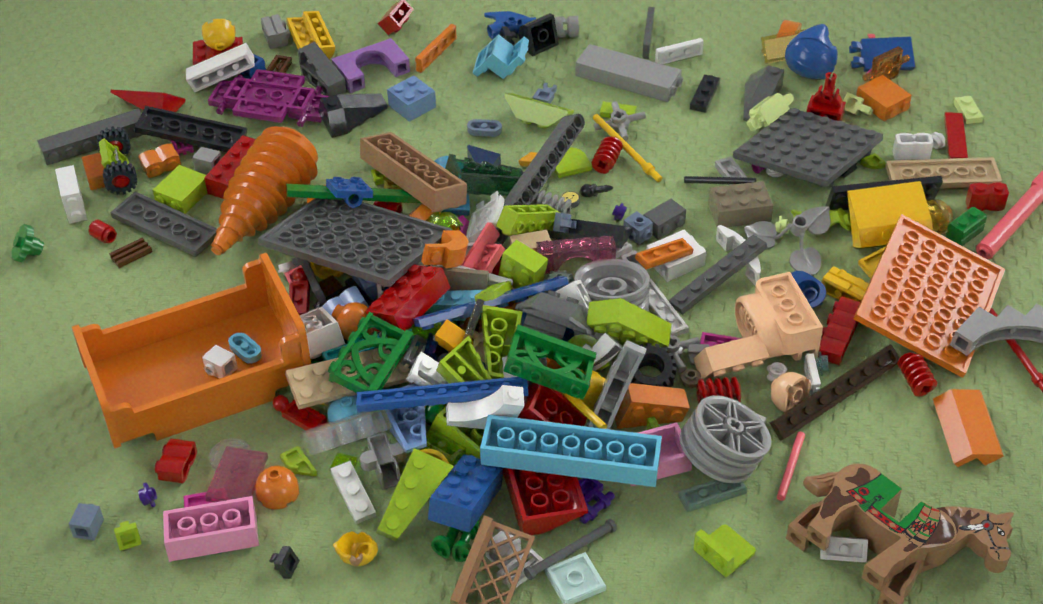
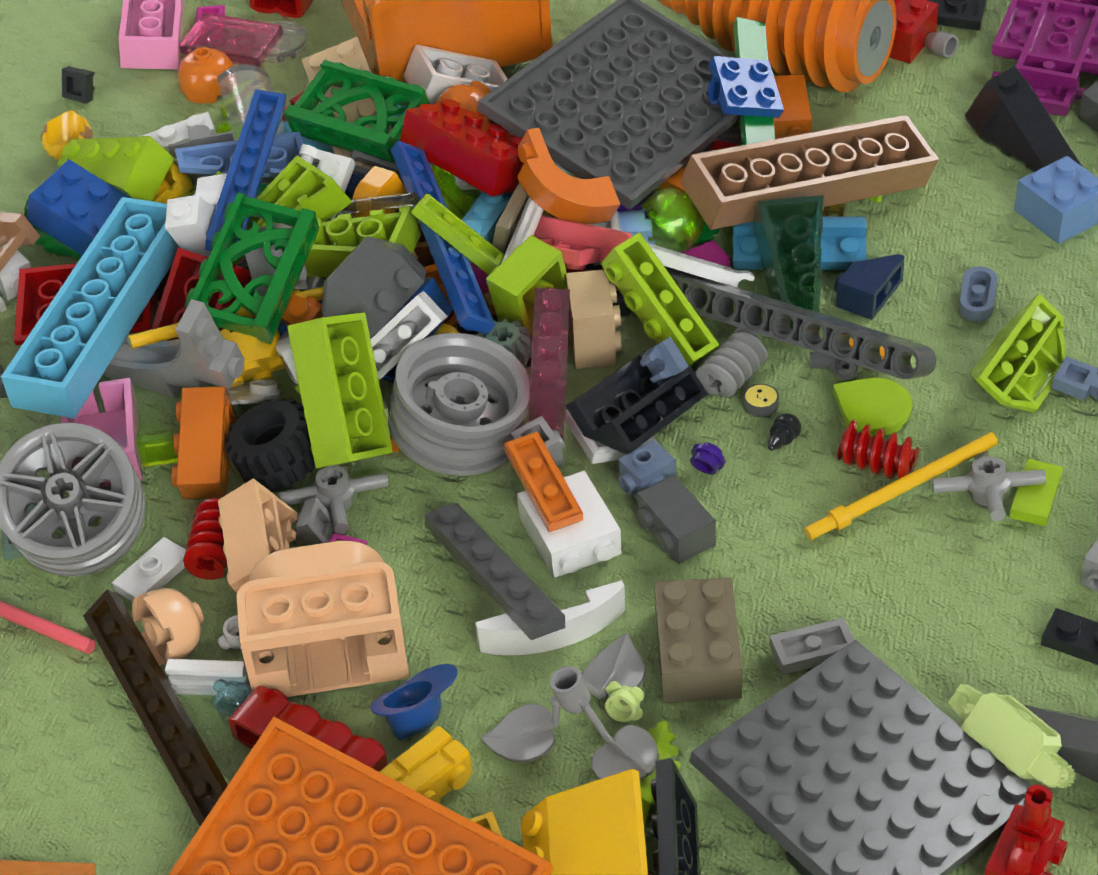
camera: 100 degrees right, 0 degrees up
(662, 308) = (467, 490): white tile -> none
(718, 180) = (776, 617): black bar -> none
(917, 374) = (148, 842): red piece -> none

